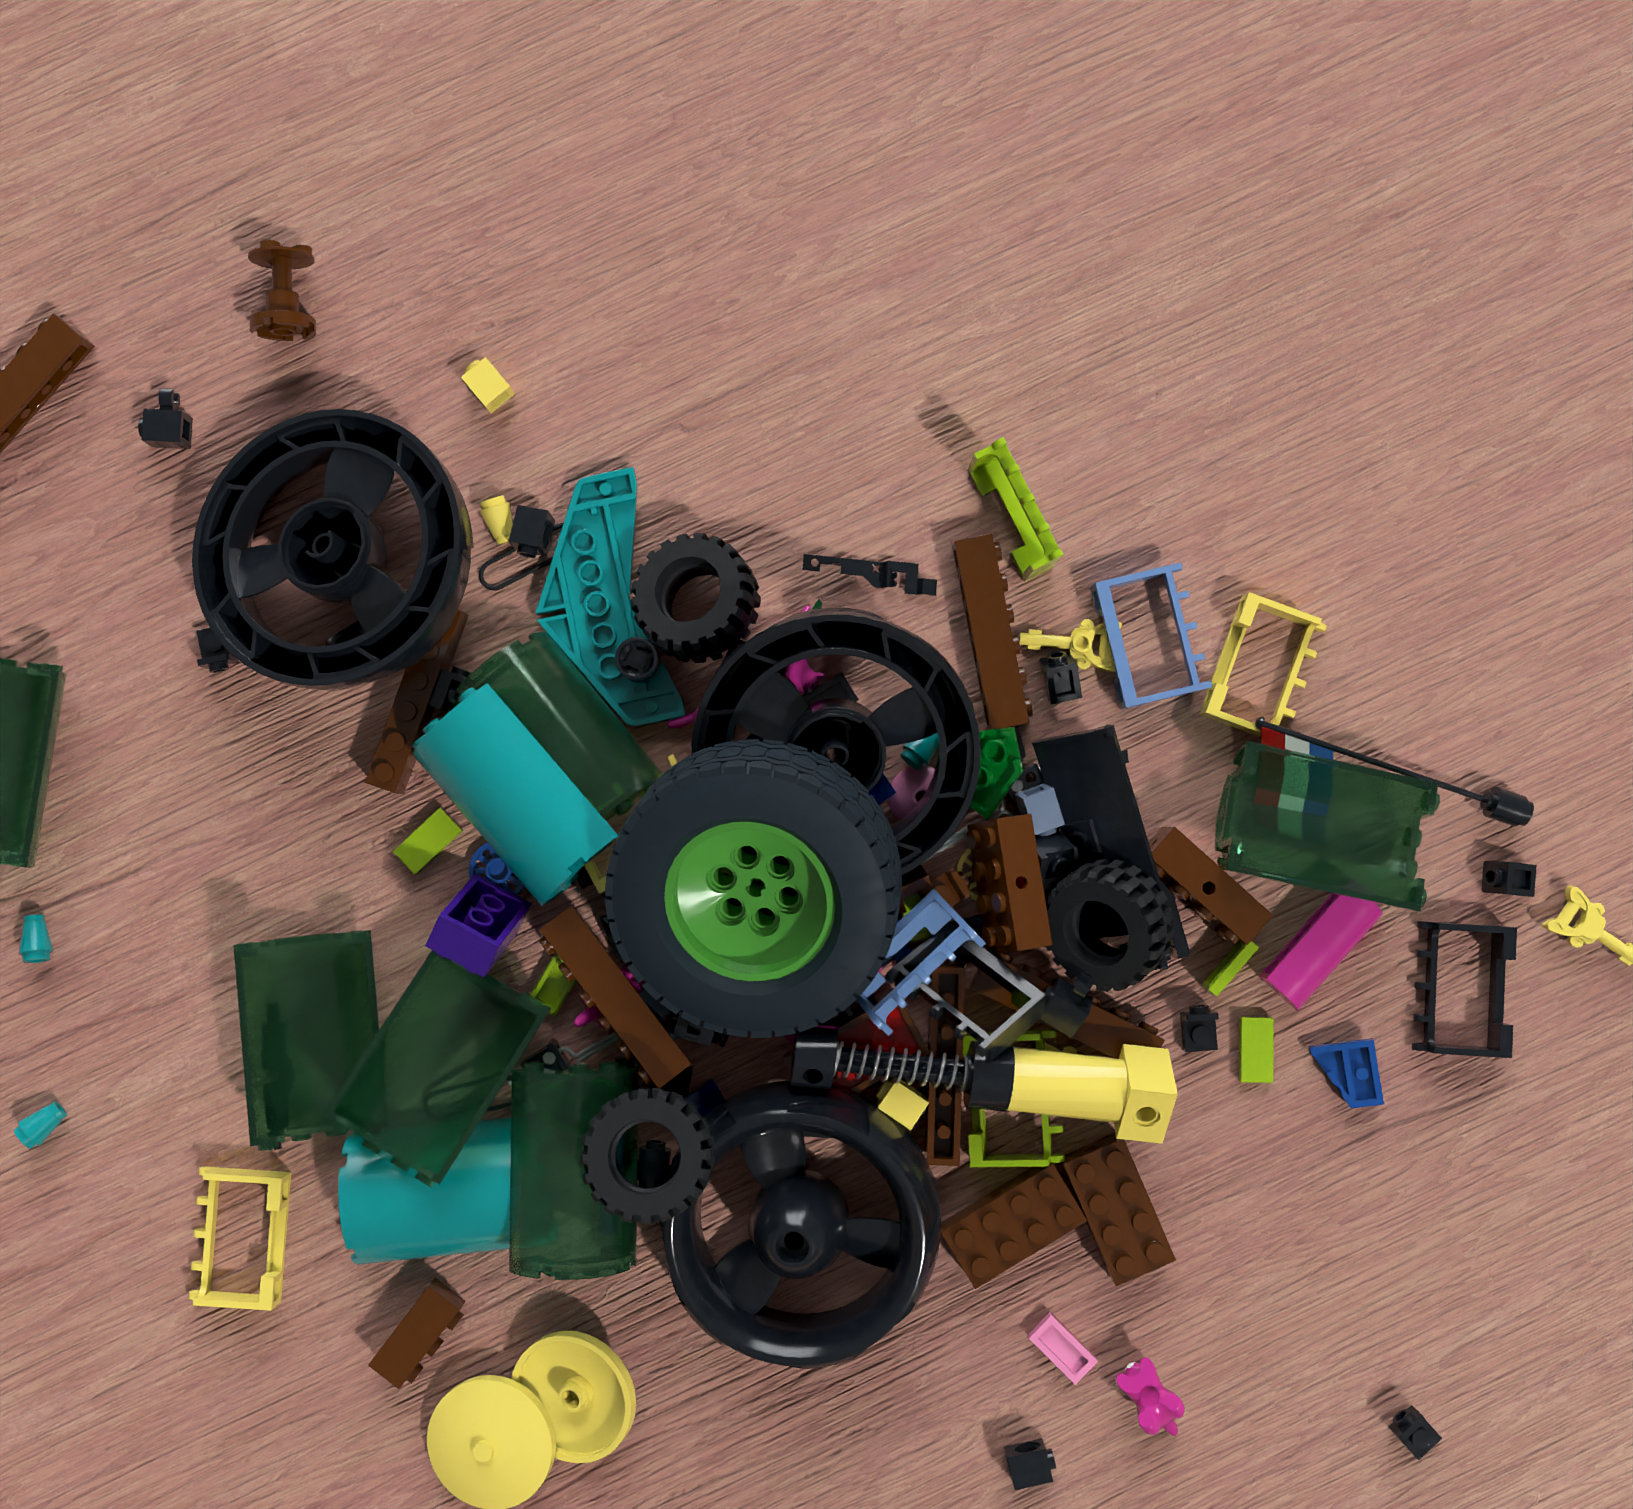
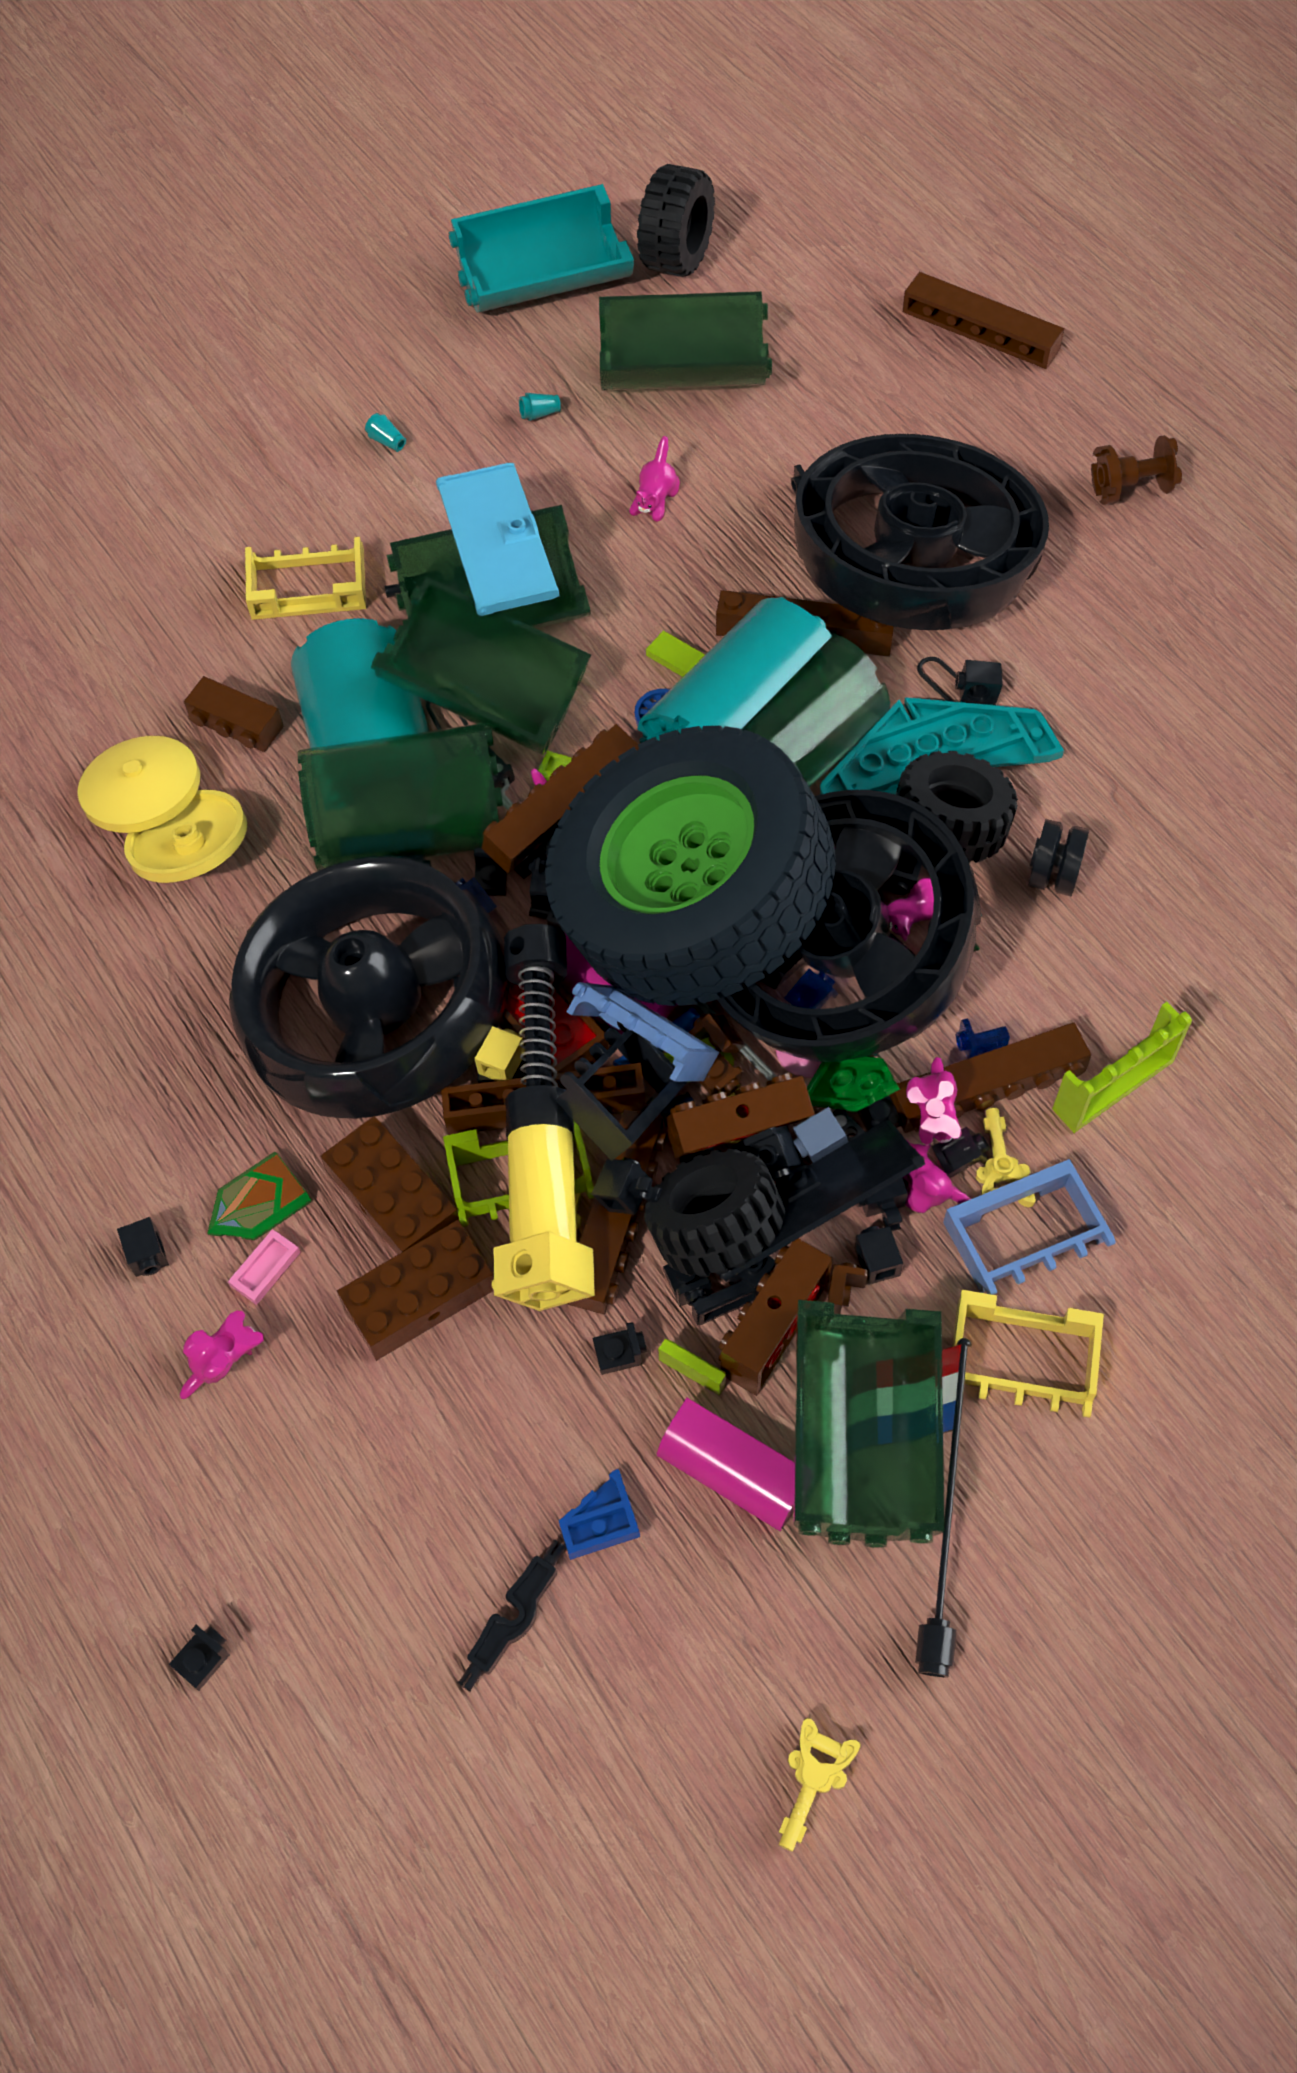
camera: 85 degrees right, 25 degrees down
(167, 425) = (994, 419): black brick -> none
(183, 823) = (656, 482): none -> dark pink animal
(270, 1025) = (497, 539): none -> medium azure door
(478, 925) = (610, 682): dark purple brick -> none
(487, 384) = (1103, 631): light yellow brick -> none
(498, 518) = (988, 652): light yellow cone -> none
(602, 1167) = (423, 780): black tyre -> none
(638, 660) = (882, 768): black wheel -> none
(770, 507) = (1058, 857): none -> black wheel
(878, 580) = (1020, 1006): black piece -> none
(956, 626) = (980, 1042): none -> clear blue bracket
(992, 1349) = (257, 1200): none -> tile
(1019, 693) = (936, 1099): none -> dark pink animal
(1087, 715) = (930, 1185): none -> dark pink animal
(1152, 777) = (878, 1254): none -> black brick
(1182, 820) = (842, 1279): none -> reddish brown bracket
(1256, 1049) = (607, 1414): lime tile -> none
(1431, 1167) = (502, 1632): none -> black piece
(1499, 1033) = (762, 1672): black hinge -> none
(1509, 878) = (853, 1668): black bracket -> none

